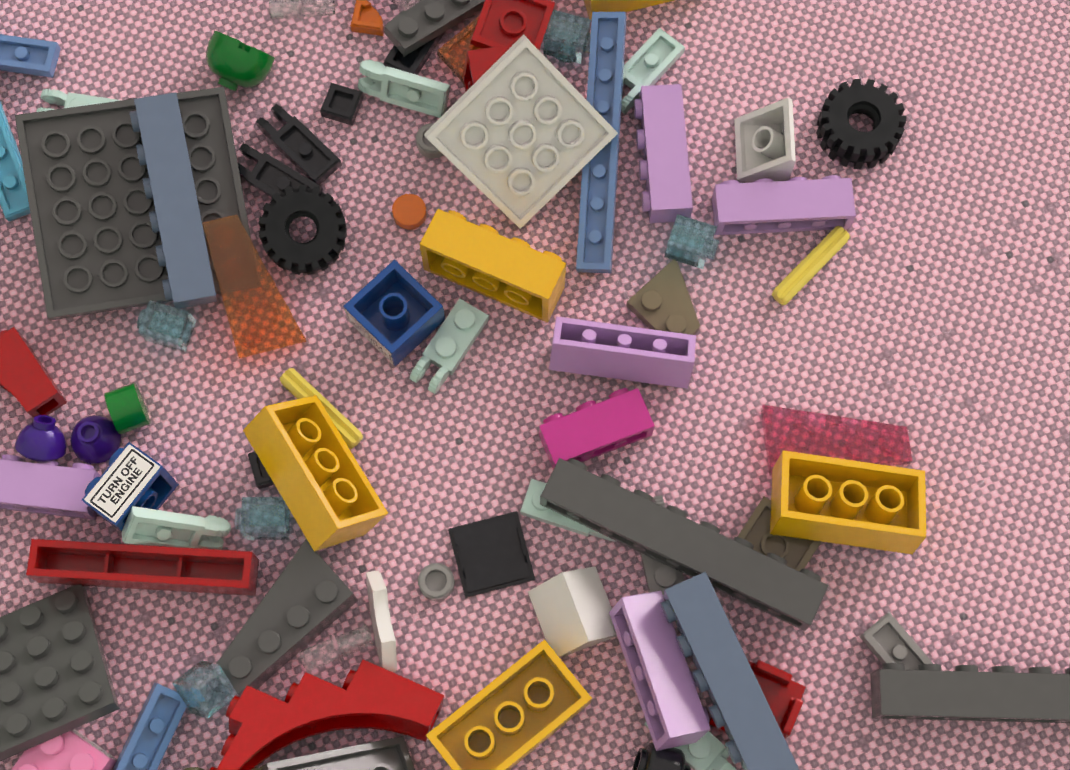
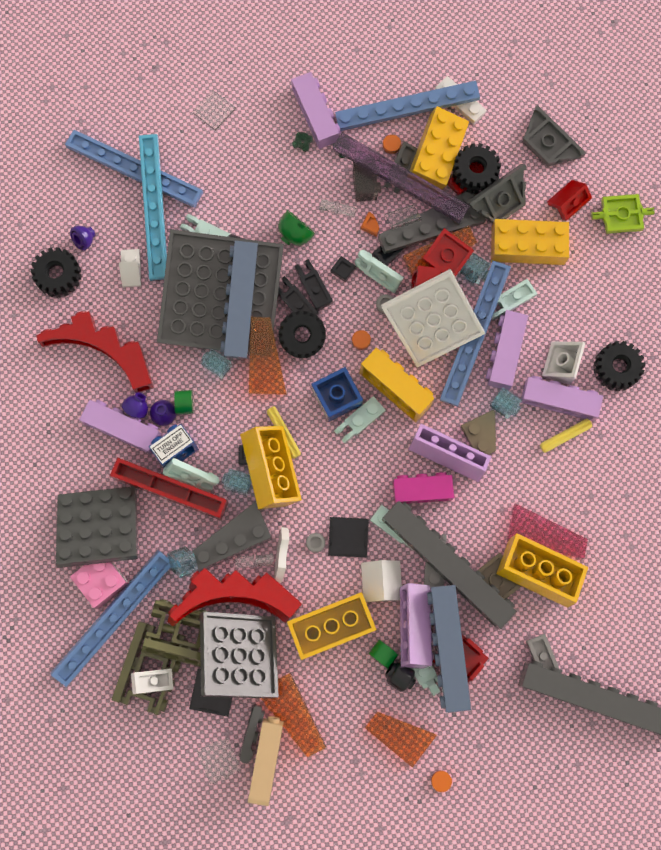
camera: 15 degrees right, 5 degrees up
(617, 739) = (383, 654): none -> green piece

